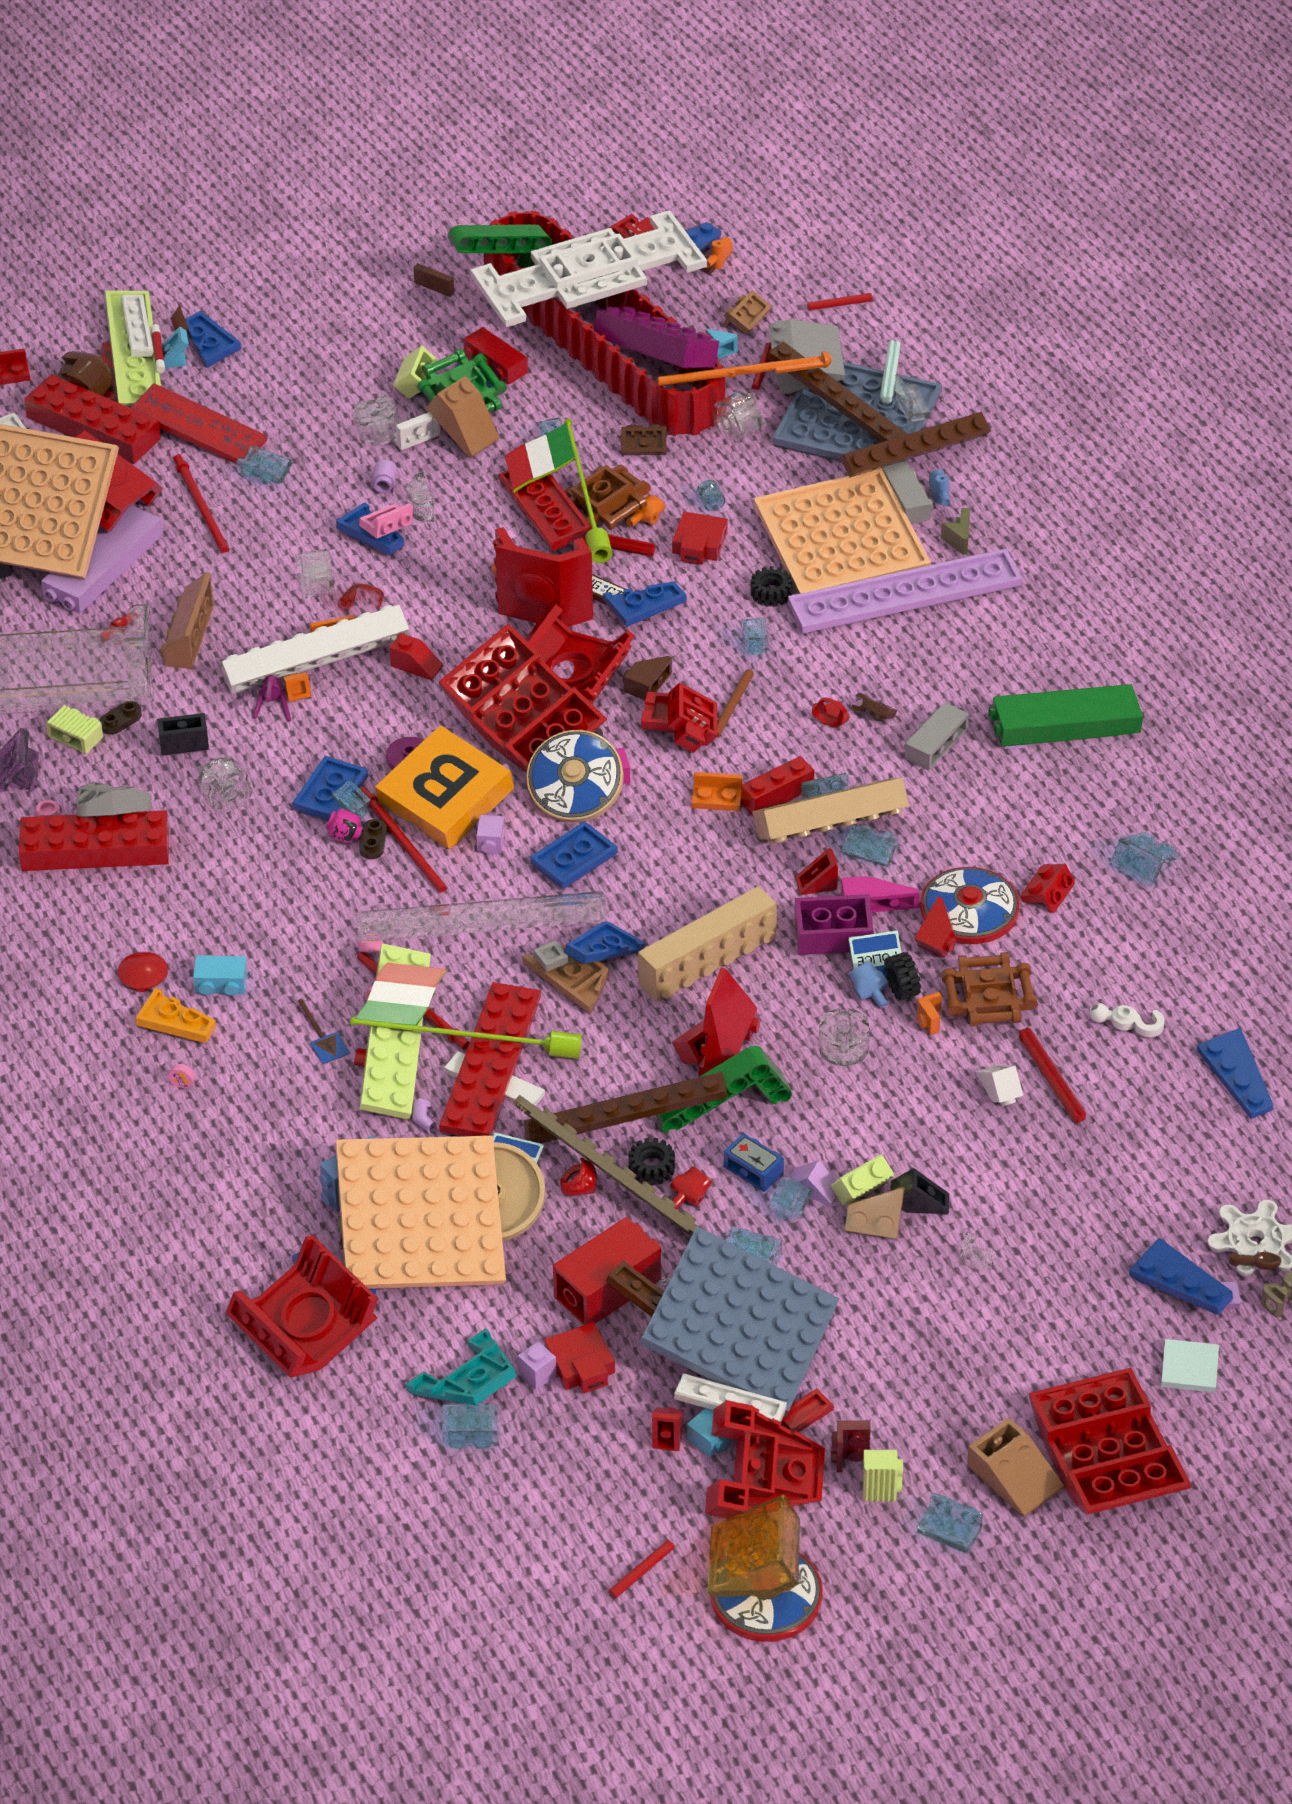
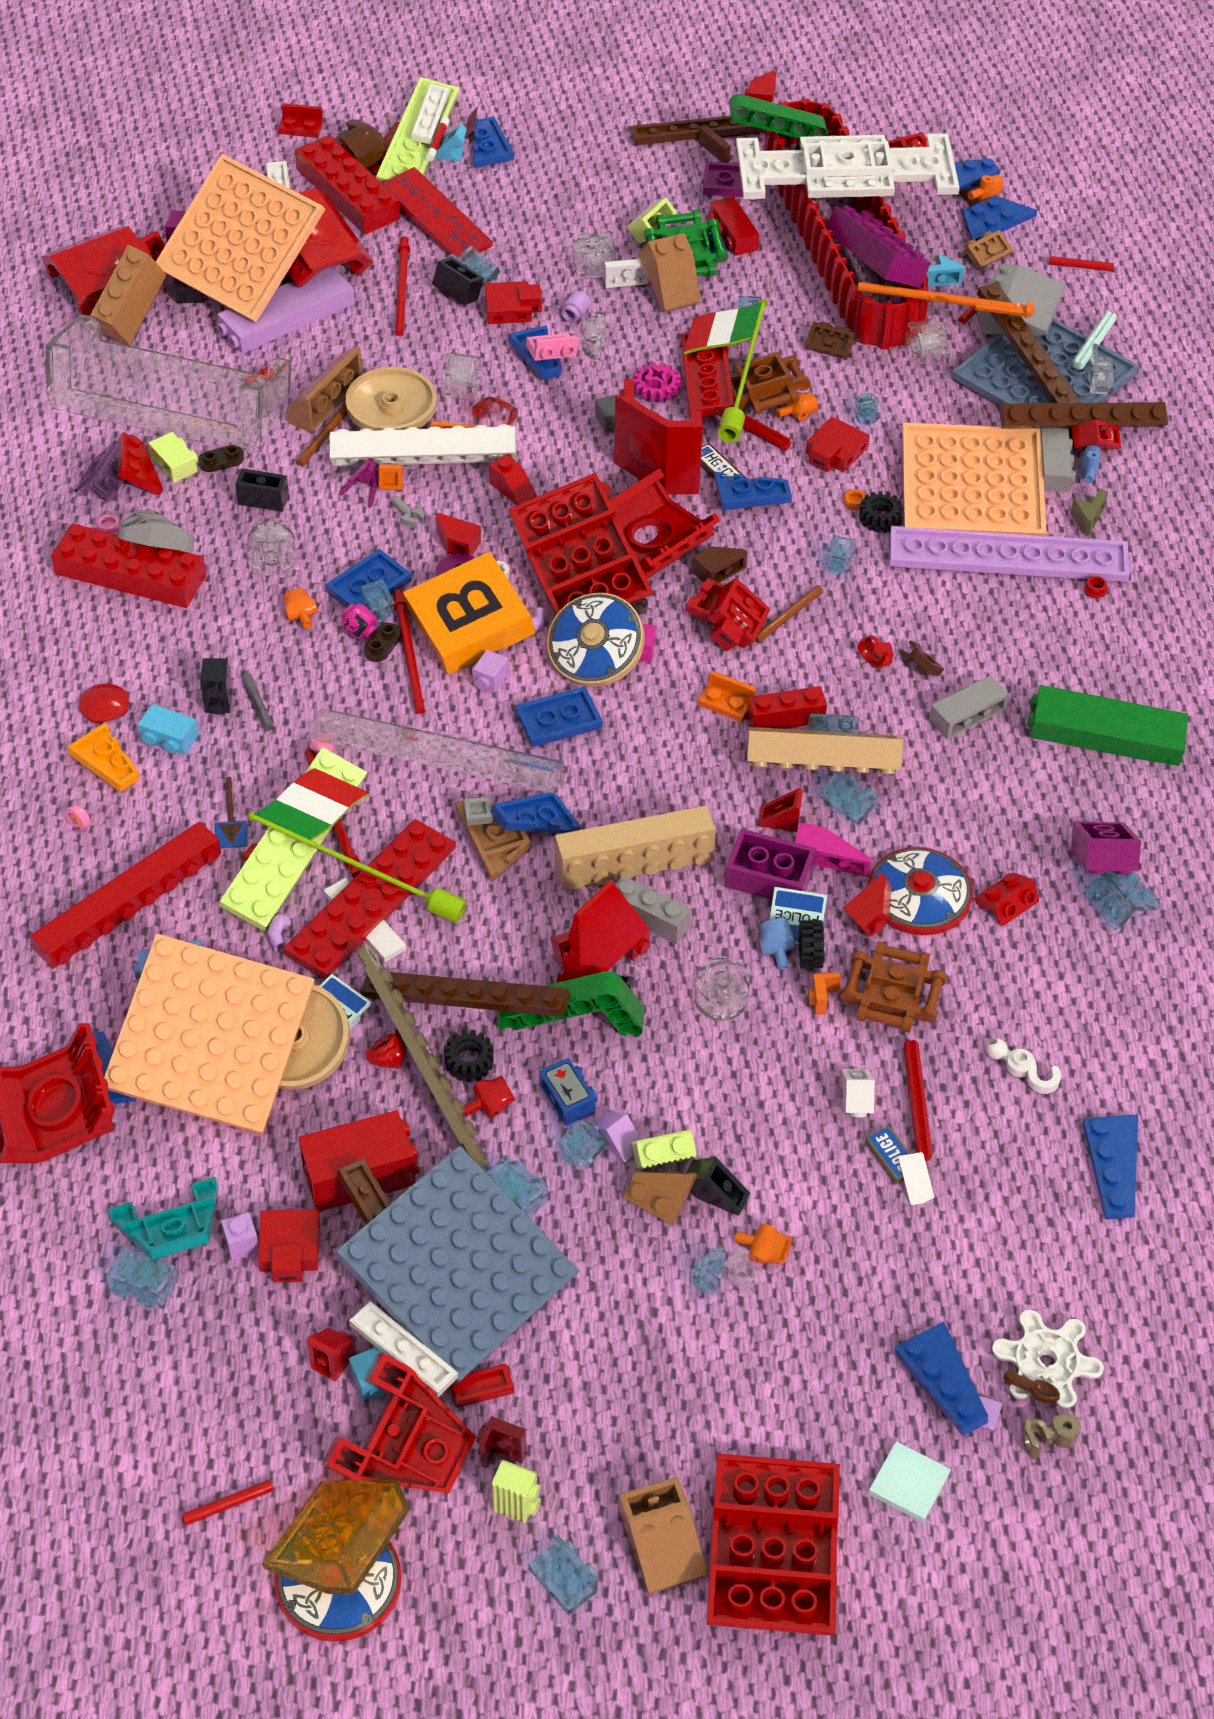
camera: 20 degrees right, 5 degrees up
(46, 748) = (136, 465): none -> red wing
(206, 667) = (322, 436): none -> dark orange bar
(247, 921) = (216, 685): none -> black brick
(258, 483) = (457, 281): none -> black brick
(258, 614) = (391, 399): none -> tan dish
(268, 1127) = (125, 895): none -> red brick
(278, 829) = (299, 606): none -> orange piece
(286, 926) = (257, 702): none -> flat silver bar
(319, 488) = (512, 302): none -> red piece
(331, 716) = (408, 512): none -> light grey bar
(390, 721) = (458, 535): none -> red slope
(401, 271) = (688, 130): none -> reddish brown plate
(451, 213) = (763, 87): none -> red slope
(461, 311) = (722, 179): none -> magenta plate
(473, 568) = (606, 412): none -> dark grey brick
(501, 518) = (657, 382): none -> dark pink gear
(736, 278) = (995, 215): none -> blue wing
(740, 582) = (853, 499): none -> orange tile
(764, 991) = (658, 912): none -> light grey brick
(931, 459) = (1096, 433): none -> red slope
(947, 1262) = (708, 1270): none -> clear light blue bracket
(986, 1225) = (766, 1245): none -> orange piece
(996, 598) = (1096, 587): none -> red plate
(1052, 1124) = (887, 1149): none -> tile
(1082, 1136) = (916, 1178): none -> white sticker
(1115, 817) = (1105, 847): none -> magenta brick

